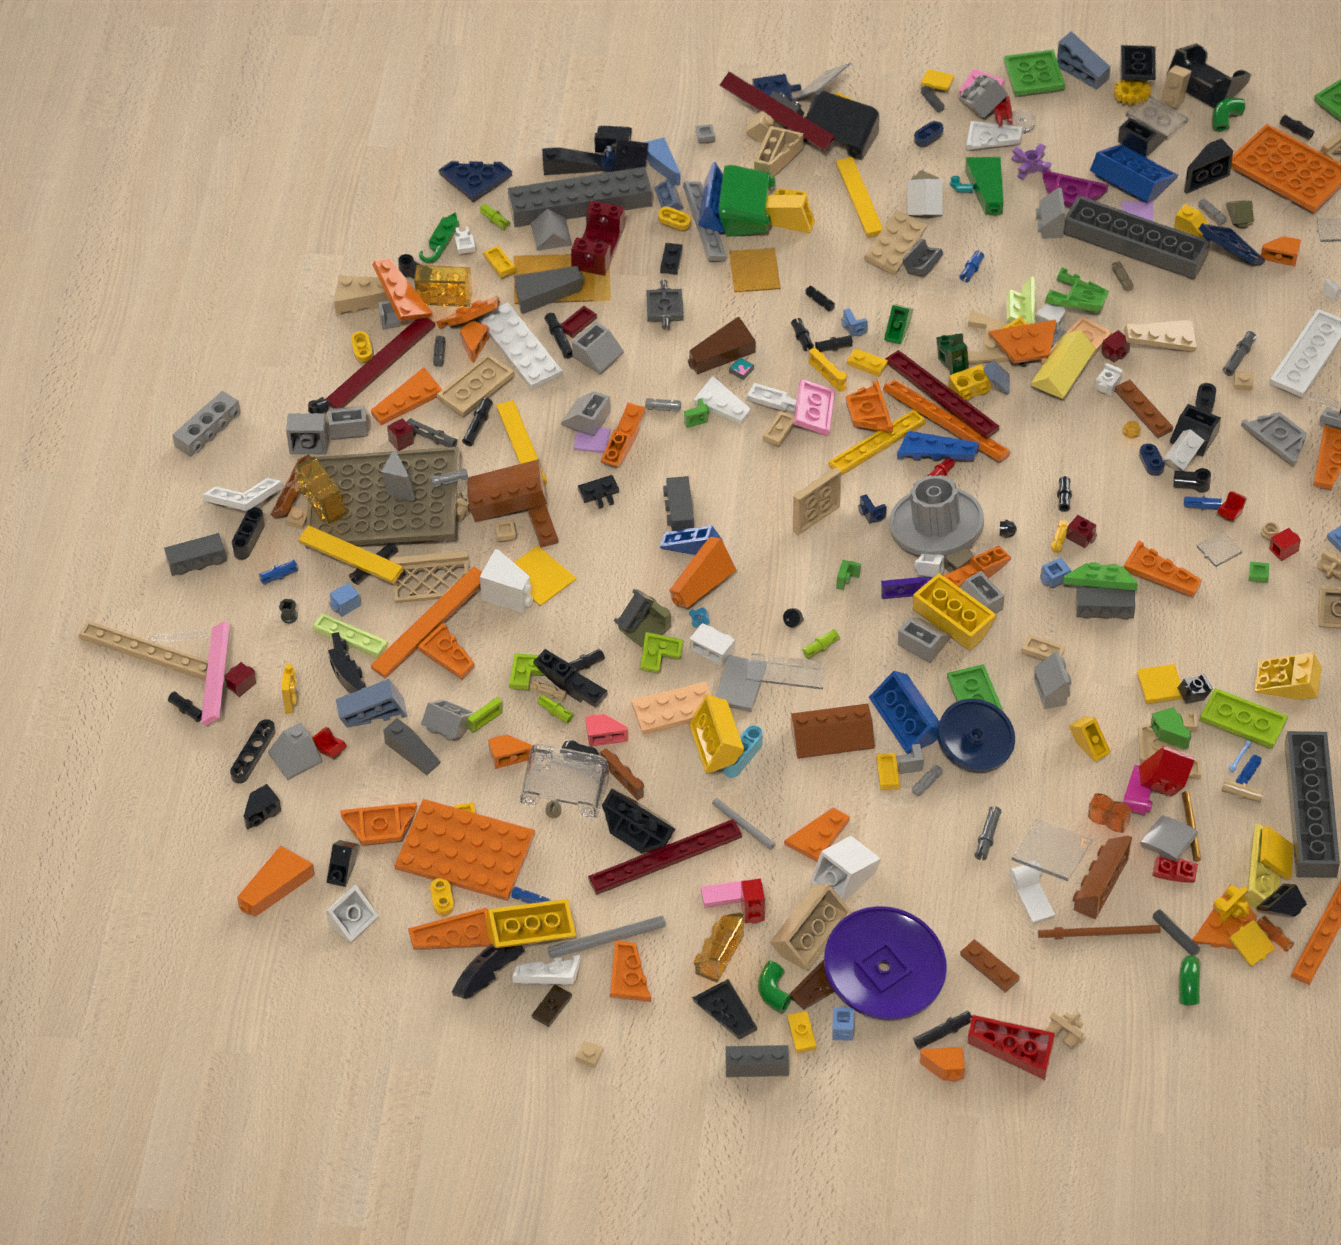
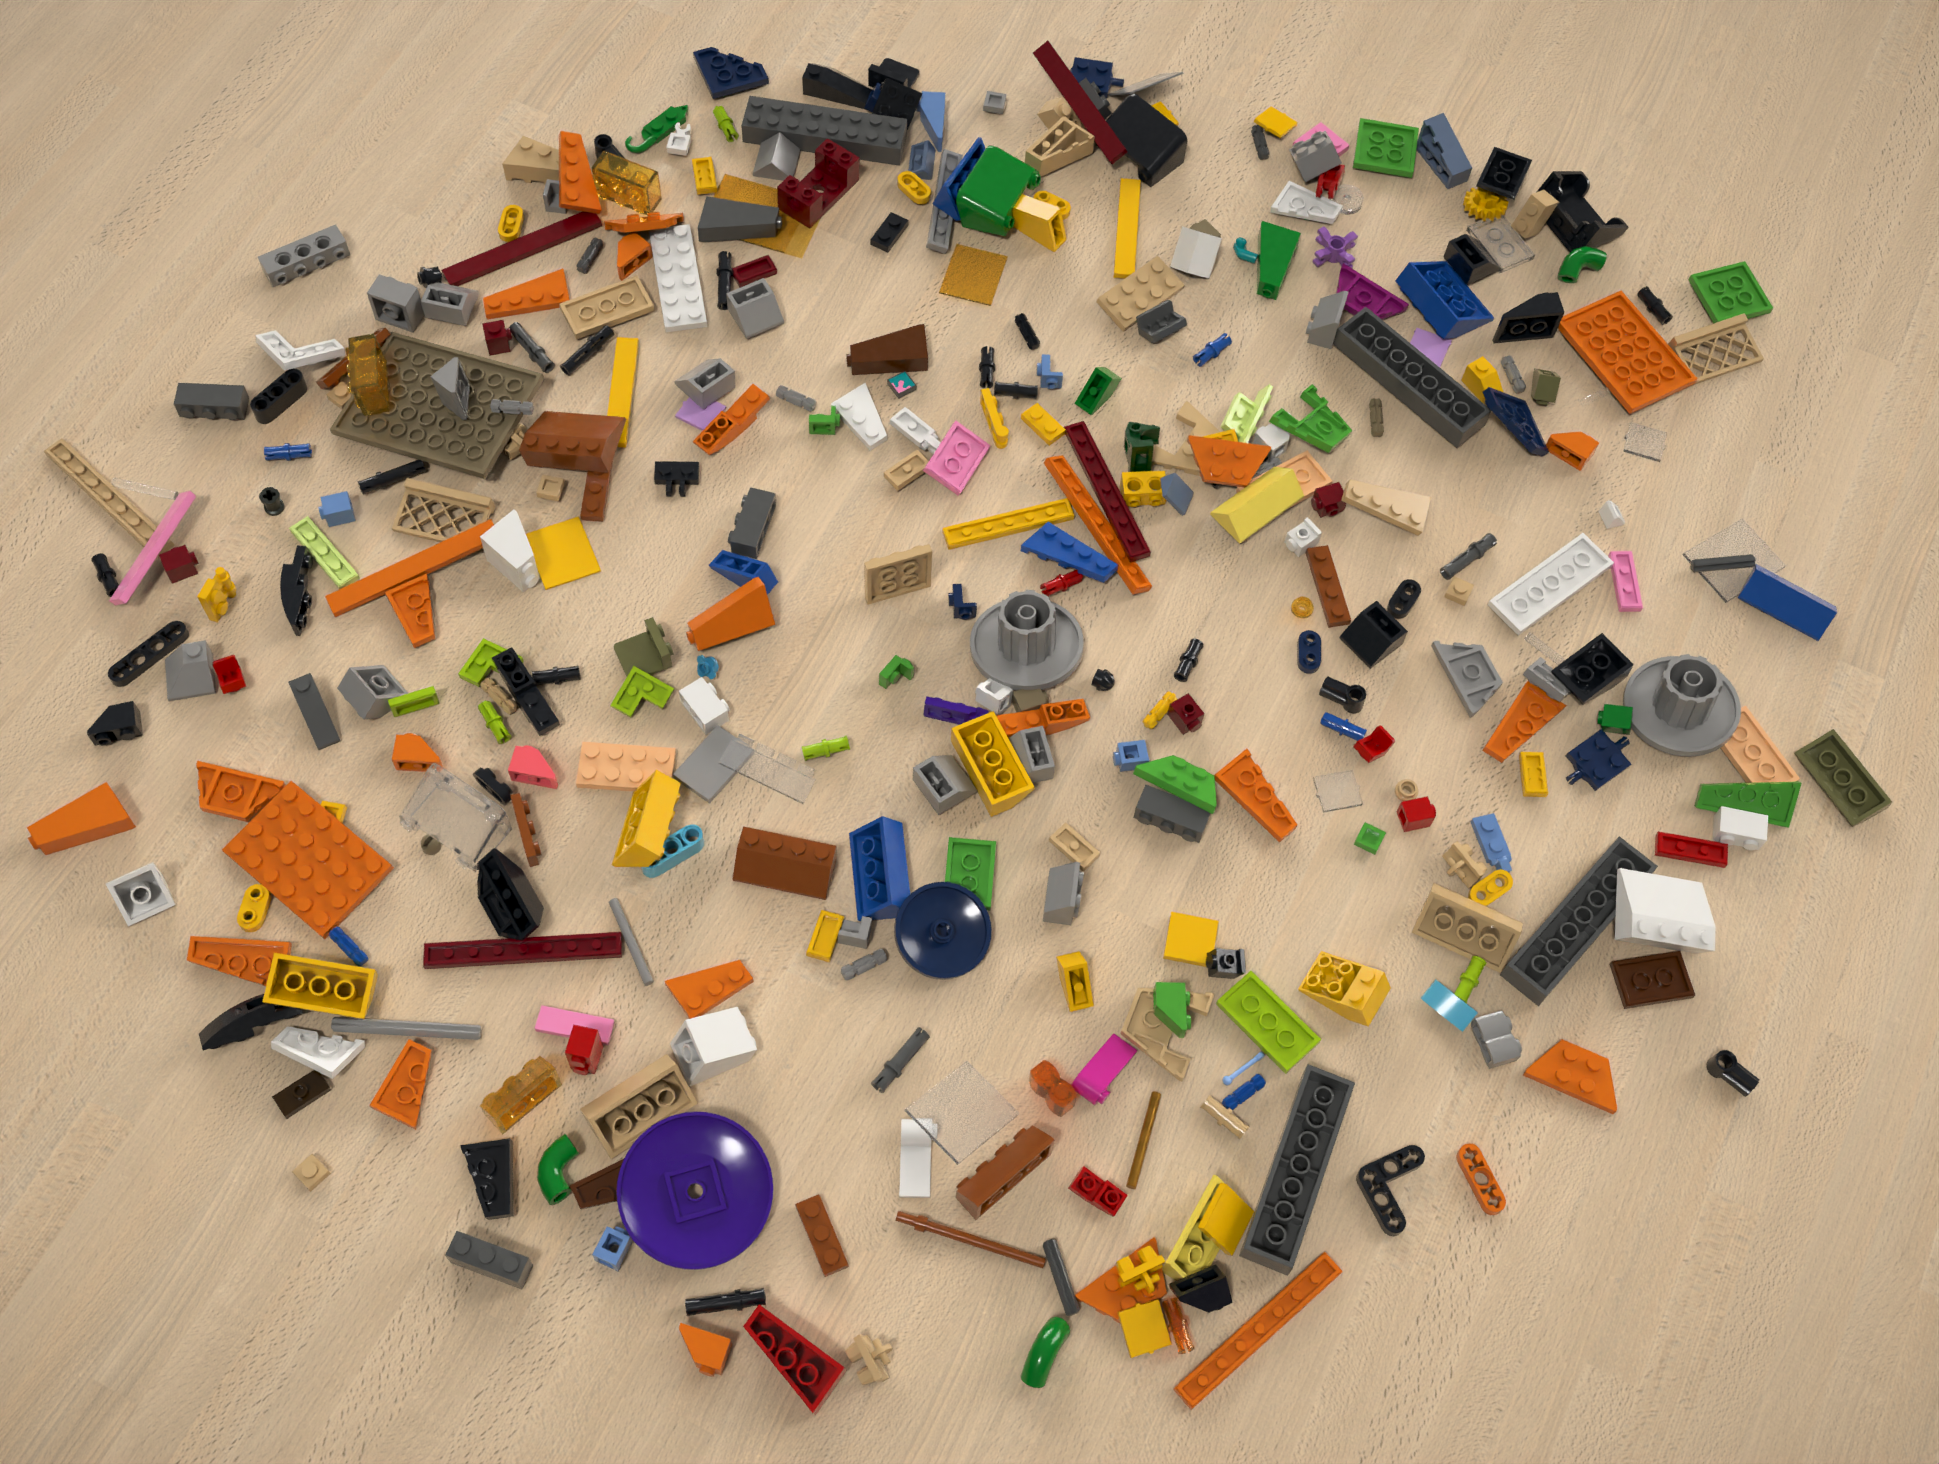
camera: 15 degrees right, 10 degrees up
(342, 862) = (166, 824): black slope -> none
(350, 554) = (367, 459): yellow tile -> none
(371, 703) = (298, 643): sand blue wedge -> none
(634, 611) = (633, 637): dark grey hinge -> none
(664, 304) = (854, 282): dark grey plate -> none
(793, 617) = (810, 704): black tile -> none
(801, 1031) = (563, 1238): yellow plate -> none
(869, 409) = (1016, 480): orange wing -> none
(928, 133) = (1236, 180): dark blue plate -> none
(1166, 771) = (1139, 1063): red slope -> none
(1169, 837) = (1108, 1147): light grey slope -> none
(1183, 450) = (1346, 656): white brick -> none

